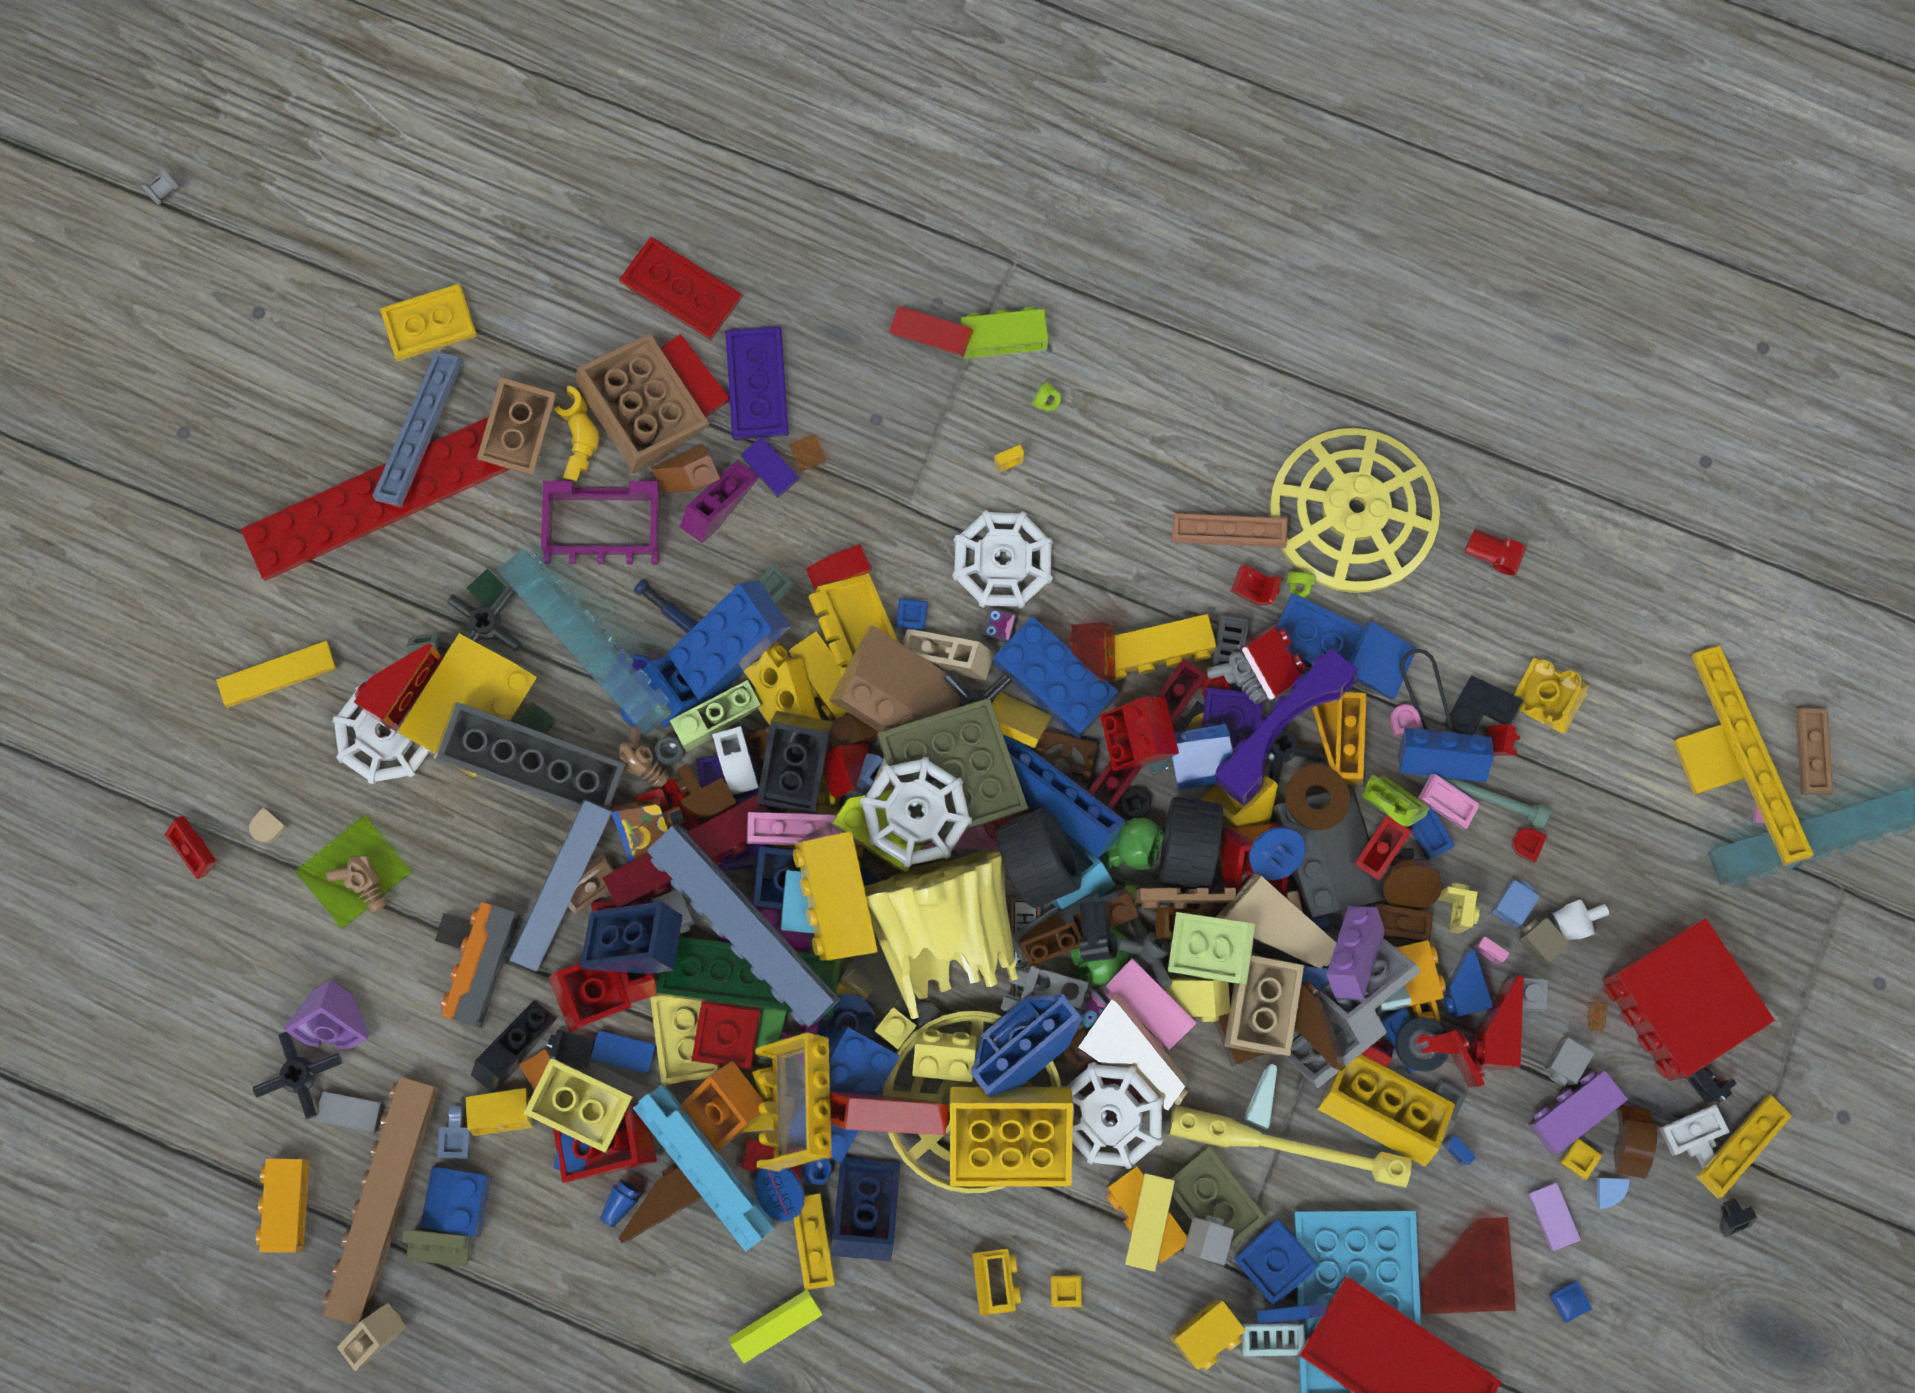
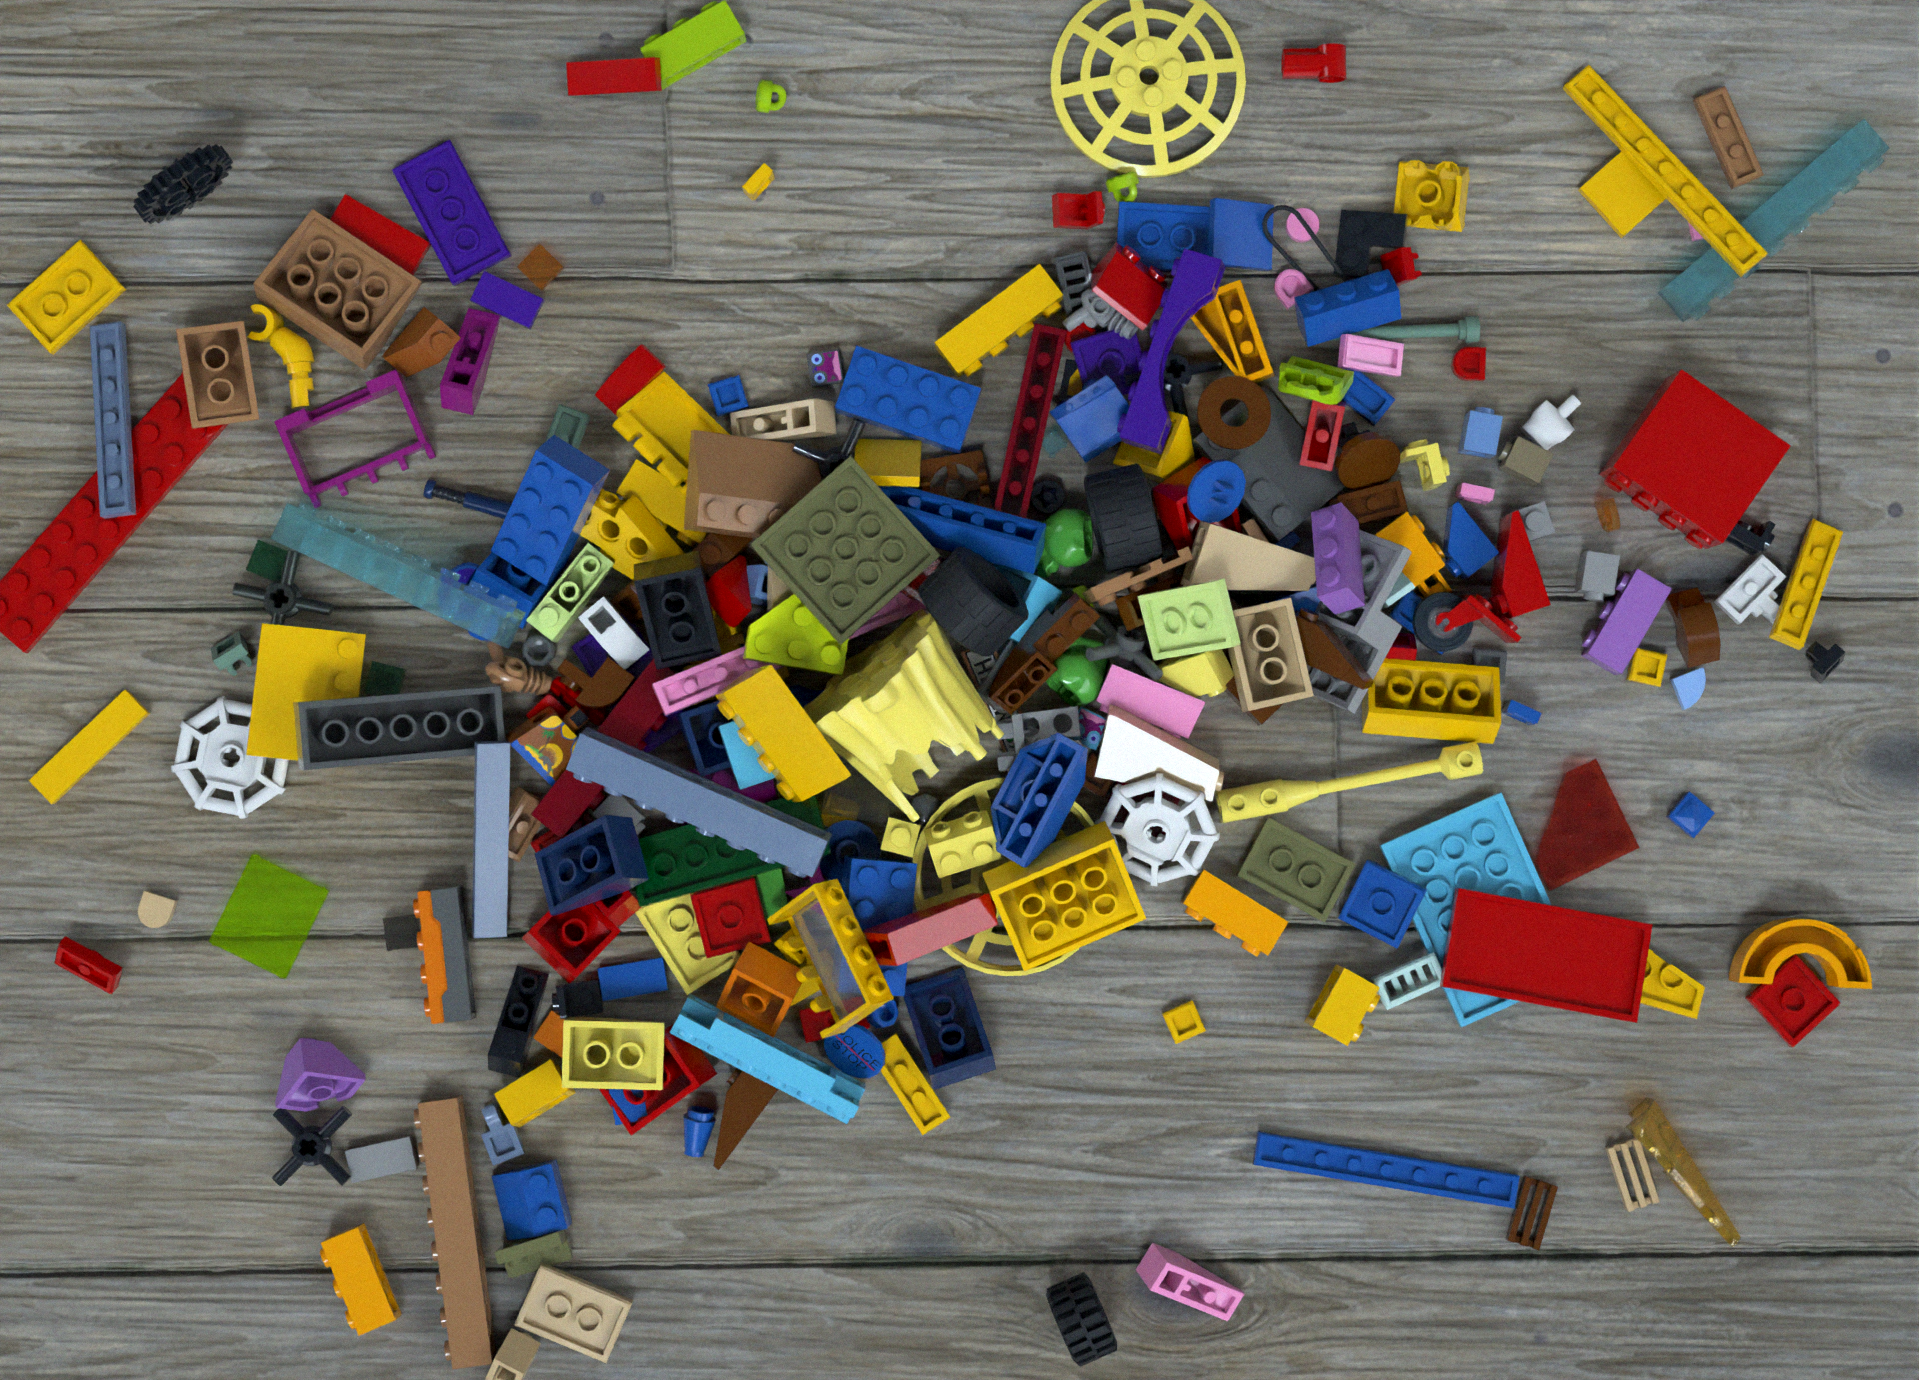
camera: 25 degrees left, 10 degrees up
(361, 878) = (282, 920): medium nougat piece -> none
(394, 690) = (225, 712): red slope -> none
(445, 1313) = (573, 1312): none -> tan tile
(541, 274) = (166, 194): none -> black gear
(680, 288) = (321, 142): red tile -> none
(775, 1326) = (908, 1182): neon yellow tile -> none
(899, 816) = (842, 598): white plate -> none
(983, 1284) = (1097, 1050): yellow window -> none
(1002, 575) = (815, 303): white plate -> none
(1095, 648) = (938, 354): clear red slope -> none
(1097, 940) = (1069, 661): black piece -> none
(1139, 733) = (1021, 425): red slope -> none
(1149, 1222) = (1239, 920): light yellow tile -> none
(1209, 1239) = (1306, 912): light grey brick -> none
(1229, 530) = (1025, 160): nougat tile -> none
(1261, 1103) = (1303, 752): light aqua slope -> none
(1291, 1313) = (1417, 948): blue tile -> none
(1427, 675) = (1296, 230): none -> bright pink tile
(1553, 1216) = (1641, 737): lavender tile -> none

